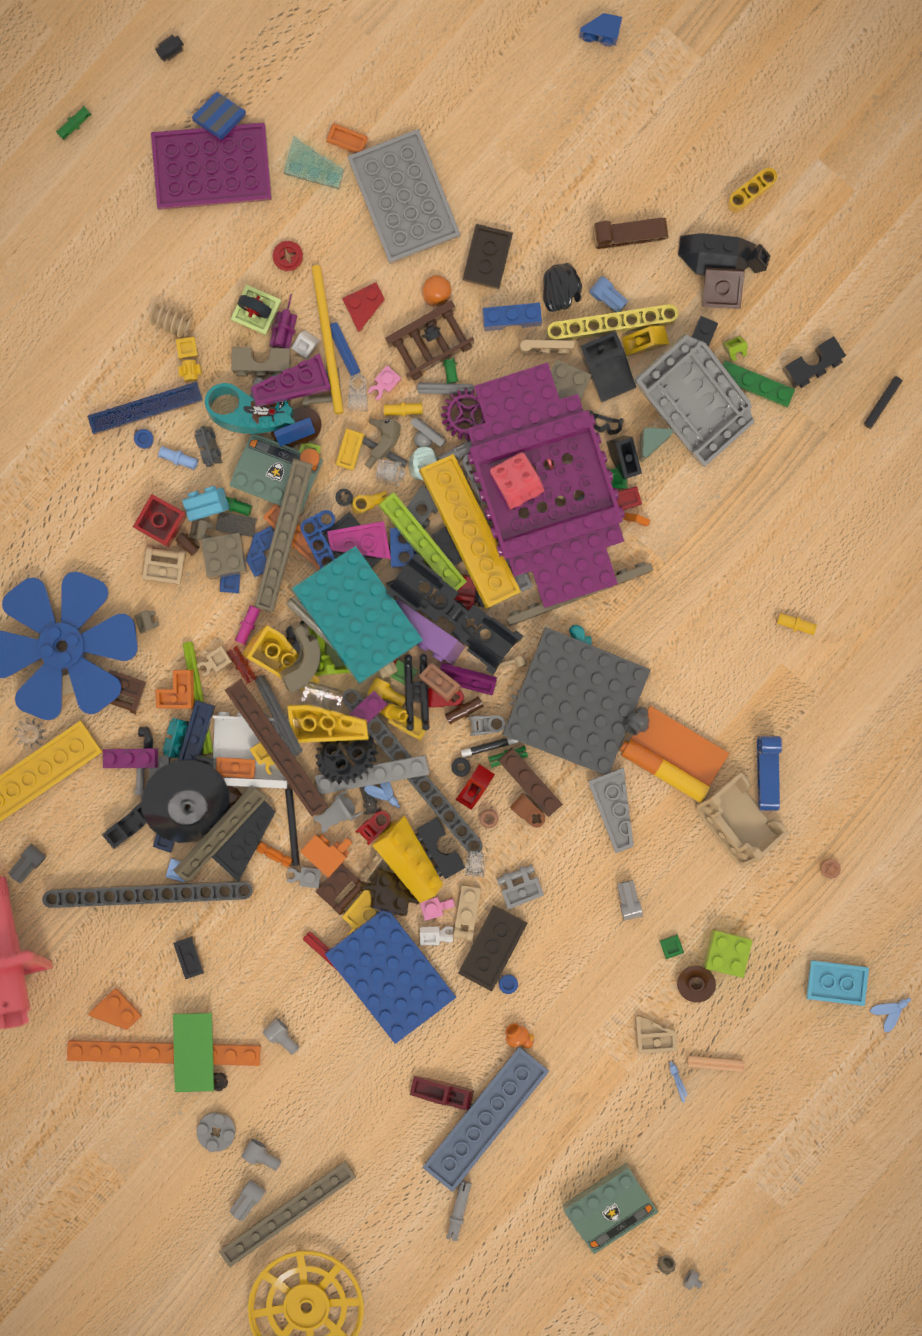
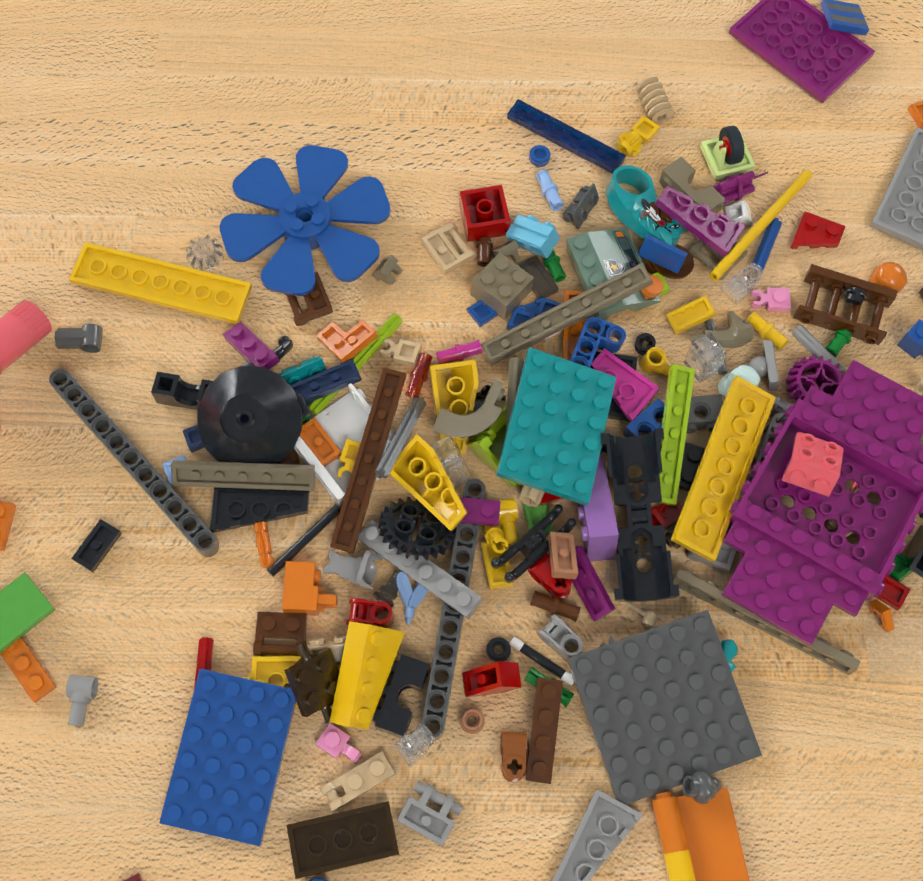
camera: 45 degrees right, 20 degrees down
(279, 253) = (802, 146): red gear -> none
(308, 876) = (267, 593): light grey plate -> none
(311, 166) = (878, 107): clear light blue wing -> none
(432, 935) = (305, 765): white plate -> none

